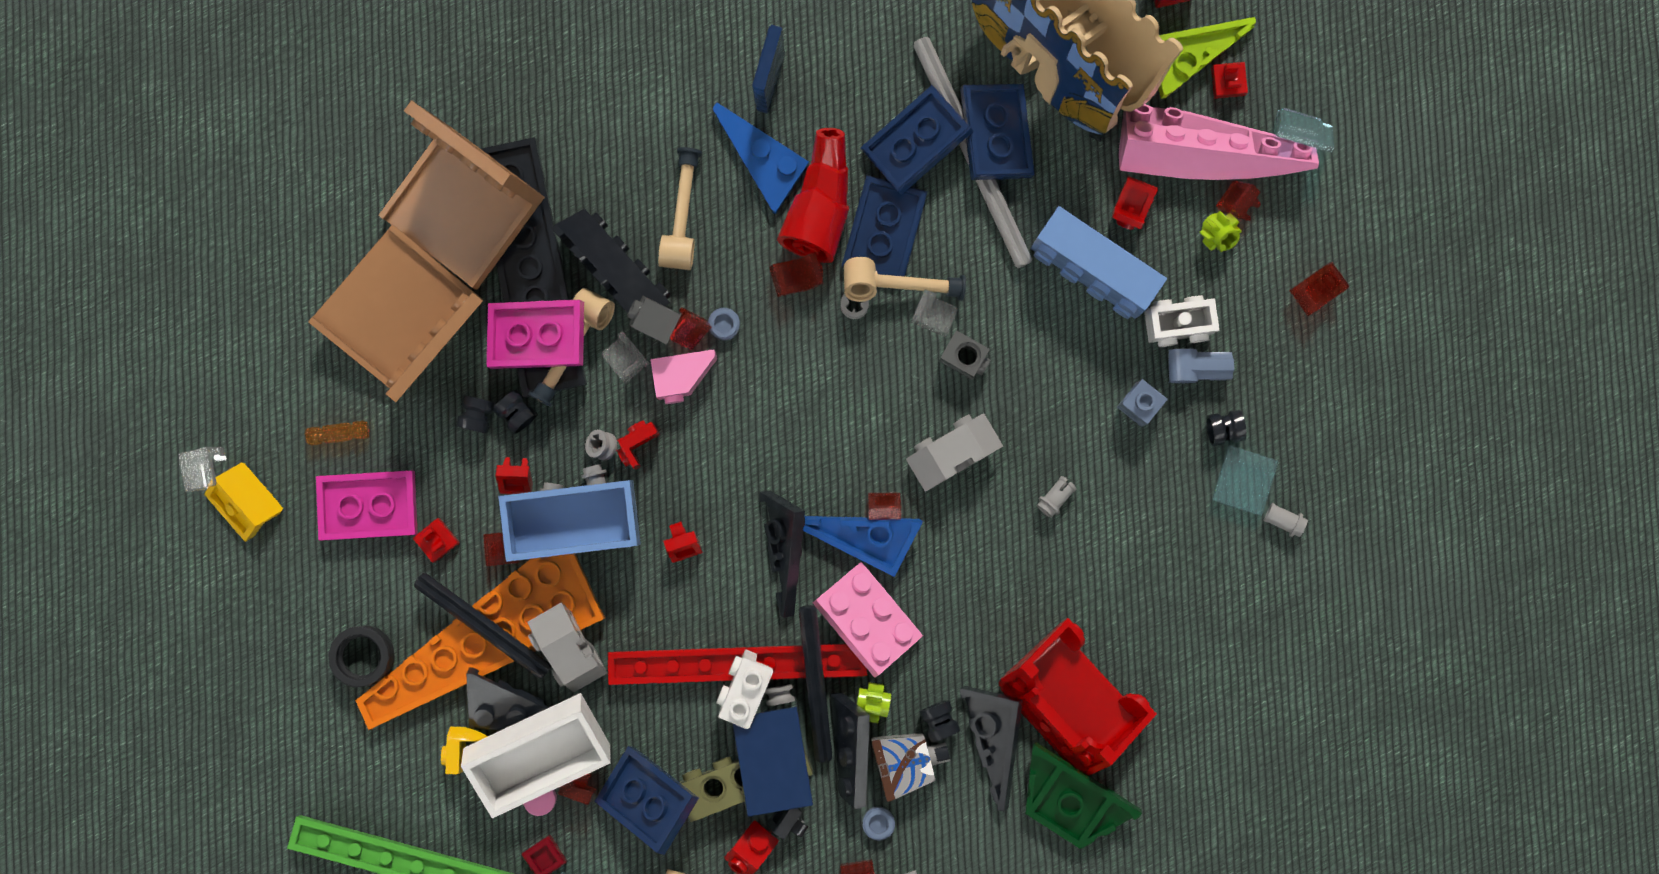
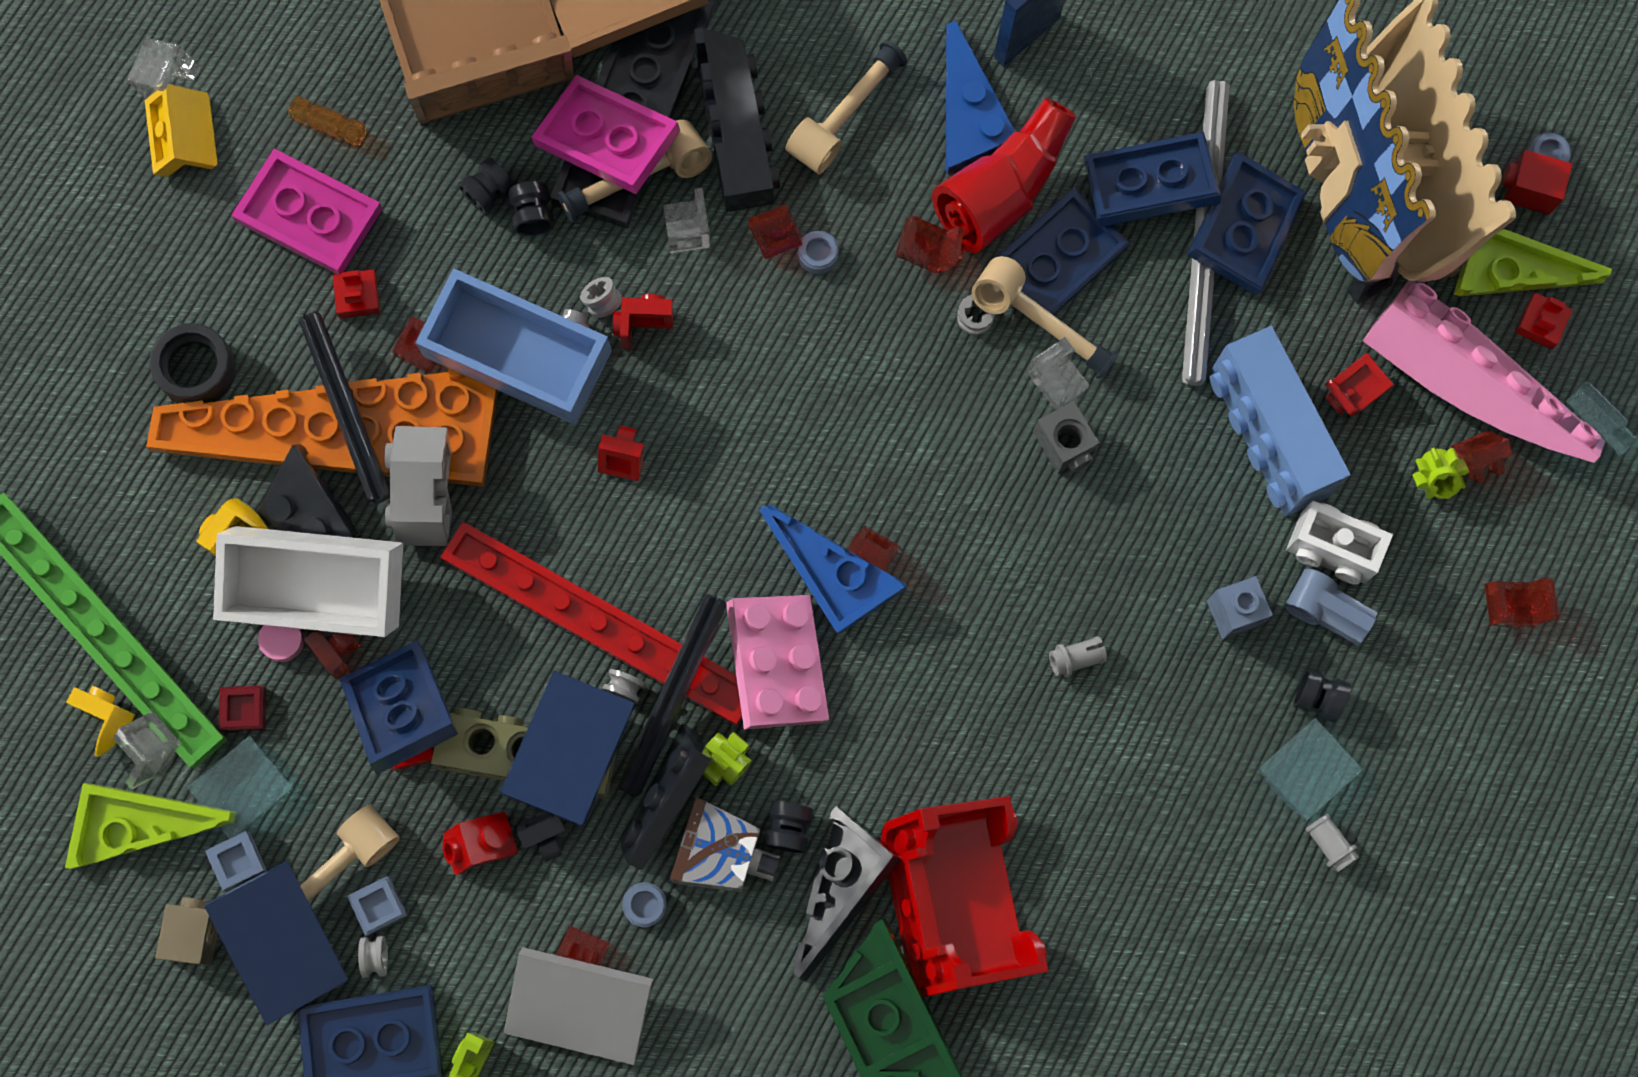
camera: 25 degrees right, 10 degrees down
(514, 478) = (484, 268): red tile -> none
(653, 319) = (743, 189): dark grey brick -> none
(680, 374) = (737, 274): bright pink slope -> none
(746, 690) = (588, 648): white bracket -> none
(784, 546) = (733, 527): black wing -> none
(954, 451) = (994, 531): light grey brick -> none

